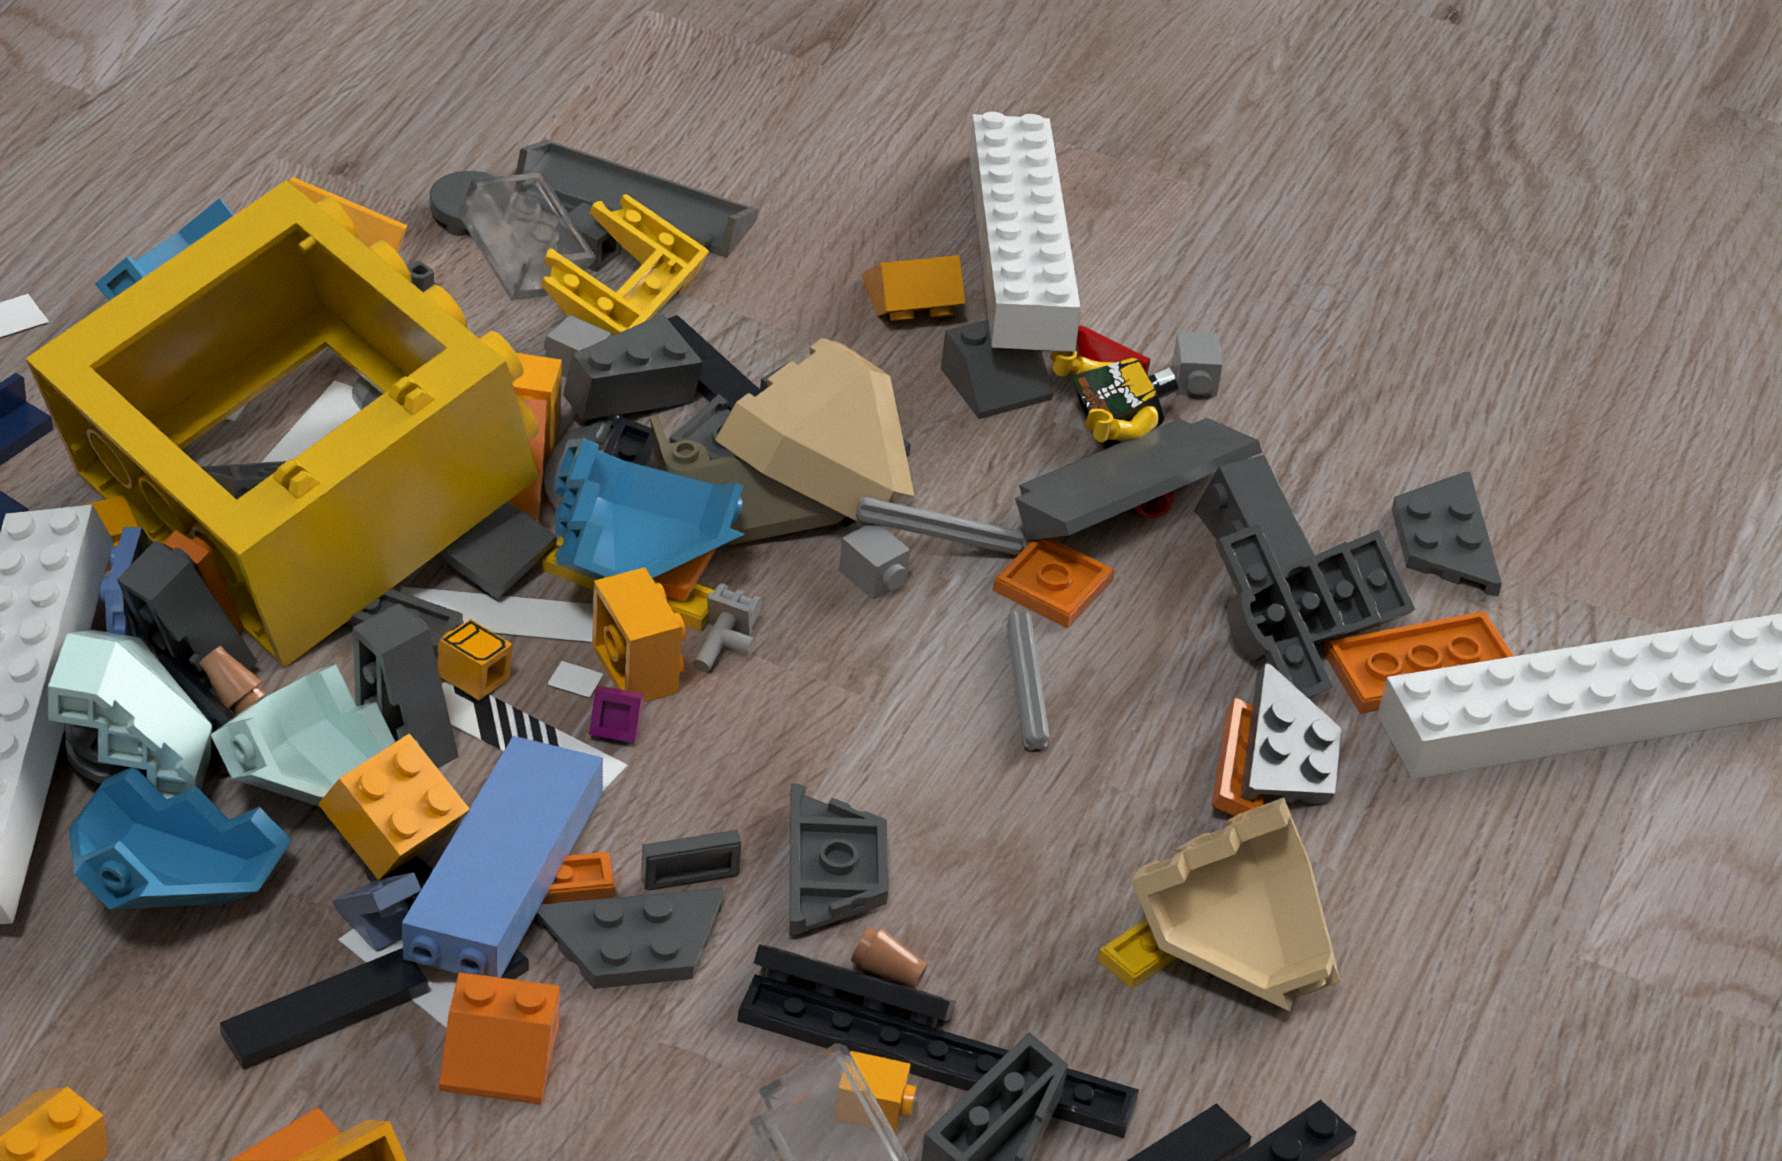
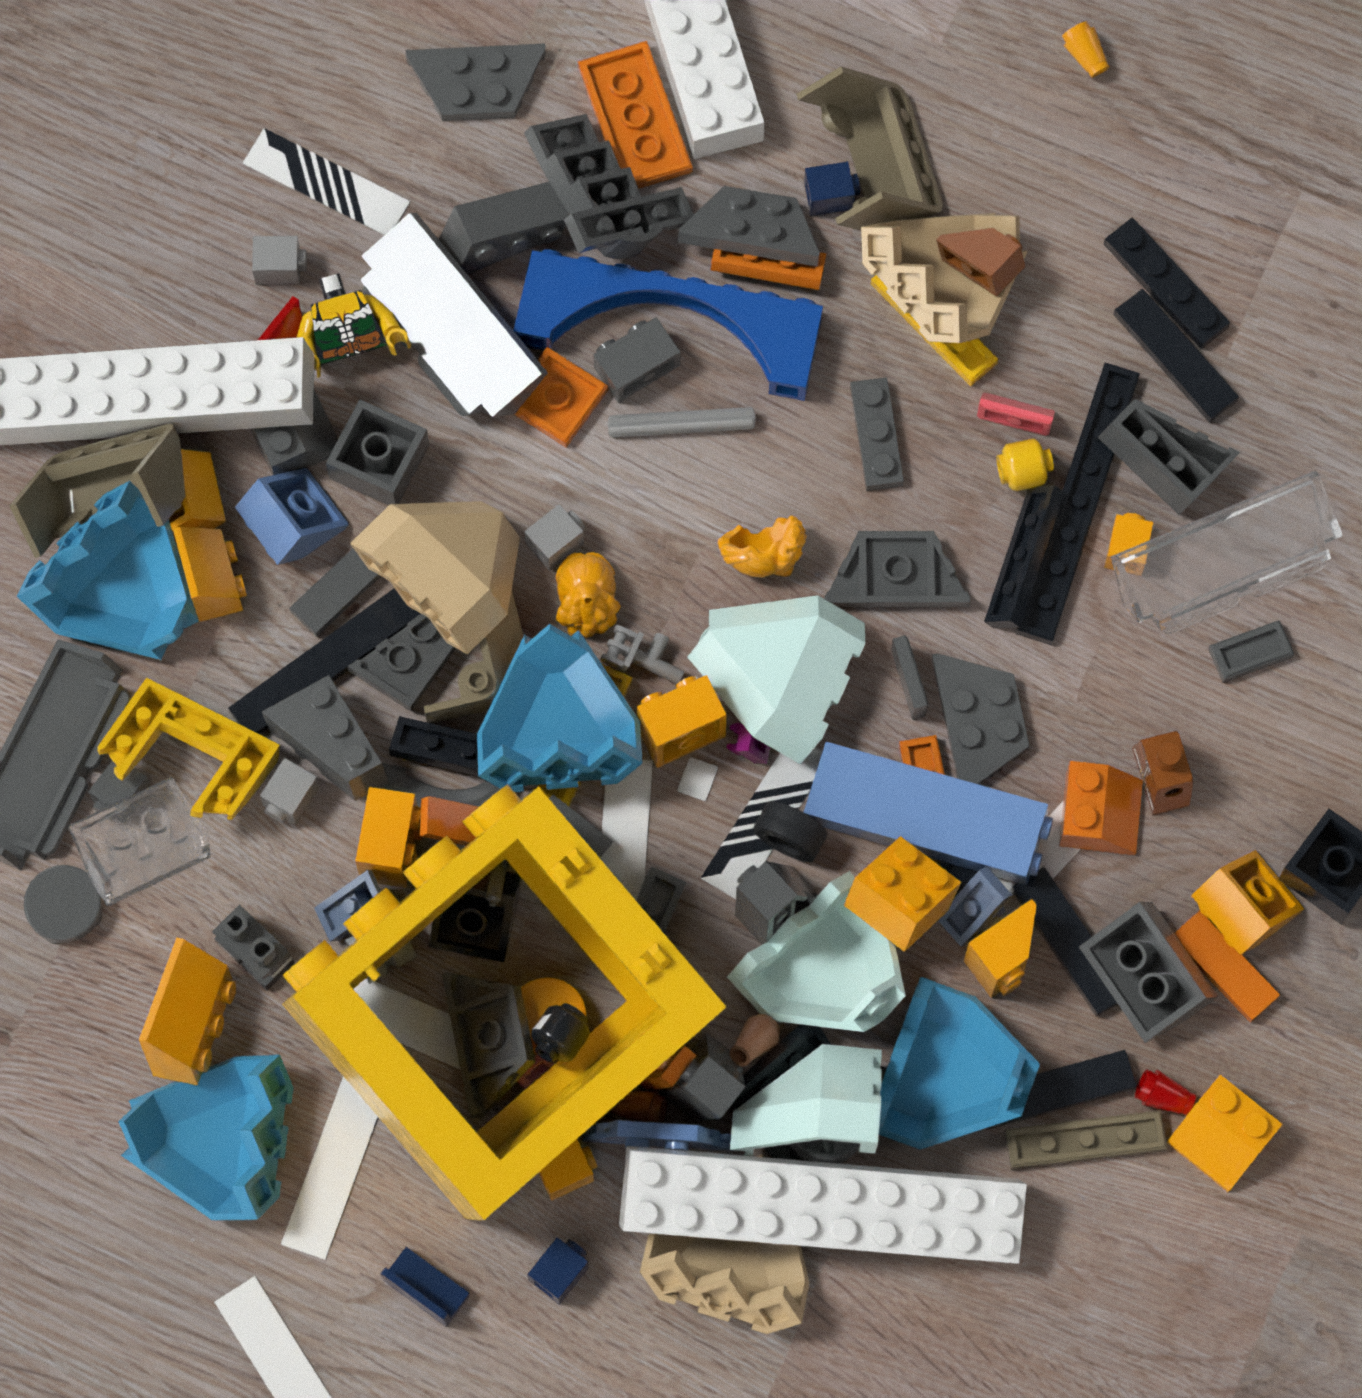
camera: 85 degrees left, 30 degrees up
(55, 1008) = (1085, 1140): none -> dark tan tile
(104, 1076) = (1163, 1093): none -> red cone
(128, 985) = (1077, 1085): none -> black tile
(268, 1071) = (1148, 971): none -> dark grey slope
(310, 912) = (1003, 951): none -> light orange slope
(474, 659) = (699, 855): light orange brick -> none
(488, 725) = (790, 831): none -> black tyre
(544, 1099) = (1164, 768): none -> dark orange torso
(700, 729) = (780, 667): none -> light aqua panel
(805, 580) = (586, 594): none -> light orange hair
(819, 227) = (114, 580): none -> dark azure panel
(826, 289) = (209, 571): none -> light orange slope
(856, 729) = (767, 552): none -> light orange hair
(887, 958) = (993, 537): nougat cone -> none
(908, 203) = (78, 477): none -> dark tan windscreen
(911, 357) = (290, 515): none -> medium blue slope
(939, 525) = (518, 481): light grey axle -> none
(968, 419) = (377, 453): none -> dark grey brick
(982, 985) = (1024, 464): none -> yellow head
(1023, 857) = (876, 434): none -> dark grey plate
(1061, 992) = (1015, 414): none -> coral slope
(1102, 638) = (636, 358): none -> dark grey brick
(1147, 760) = (568, 290): none -> blue arch
(1263, 941) = (983, 257): none -> dark orange slope
(1303, 415) = (326, 182): none -> white sticker
(1350, 820) = (830, 188): none -> dark blue brick
(1453, 881) = (882, 144): none -> dark tan windscreen
(1600, 1096) = (1086, 48): none -> light orange cone

